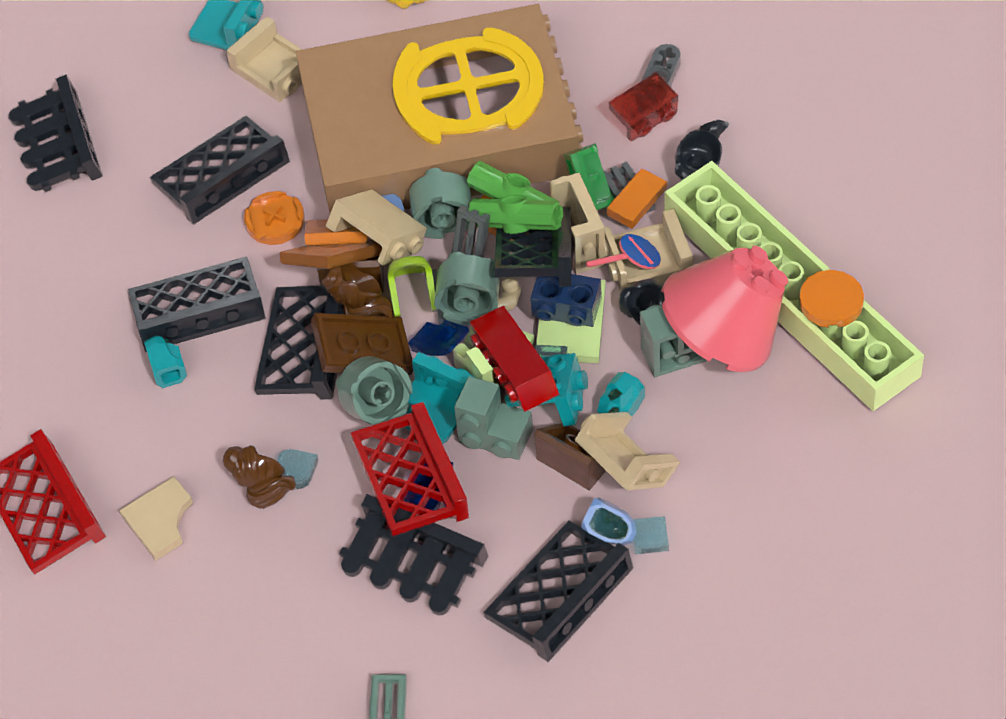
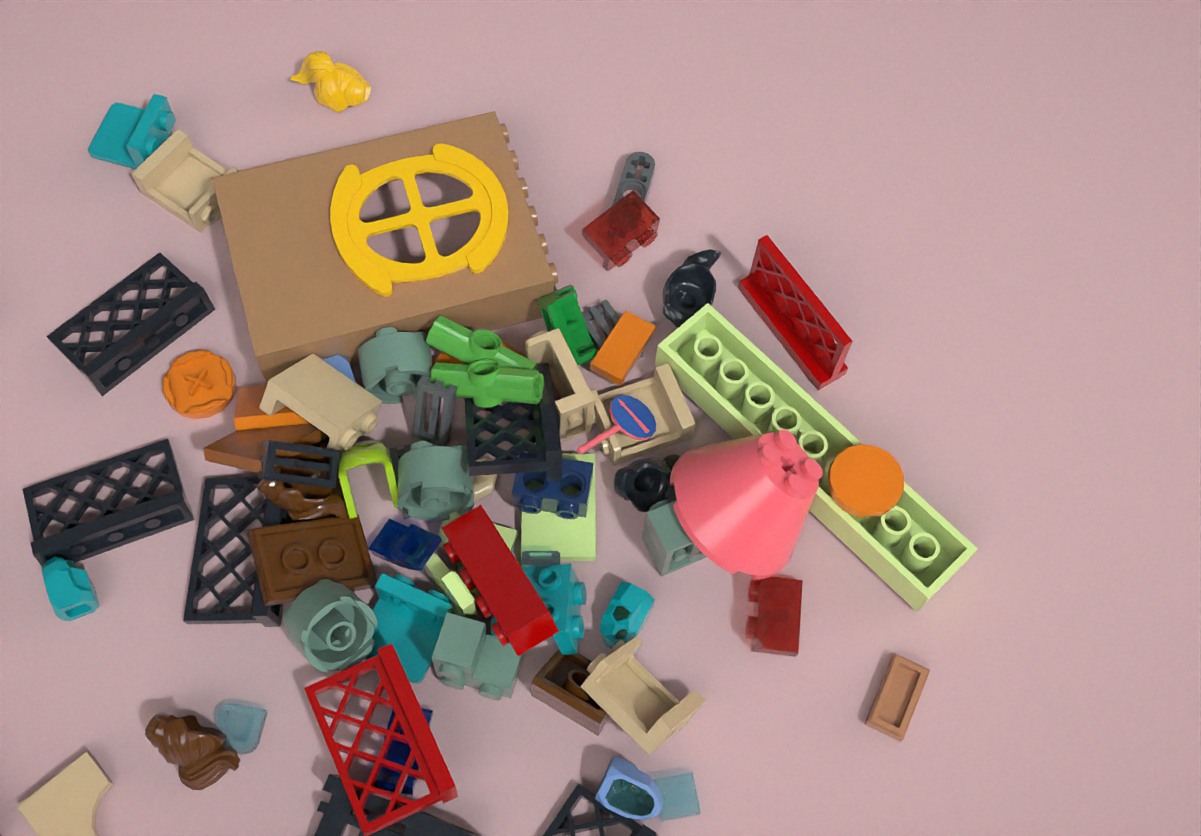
camera: 15 degrees left, 10 degrees up
(334, 257) = (270, 460): none -> black tile
(748, 407) = (776, 615): none -> clear red bracket
(790, 176) = (796, 315): none -> red fence
(847, 473) = (897, 697): none -> nougat tile

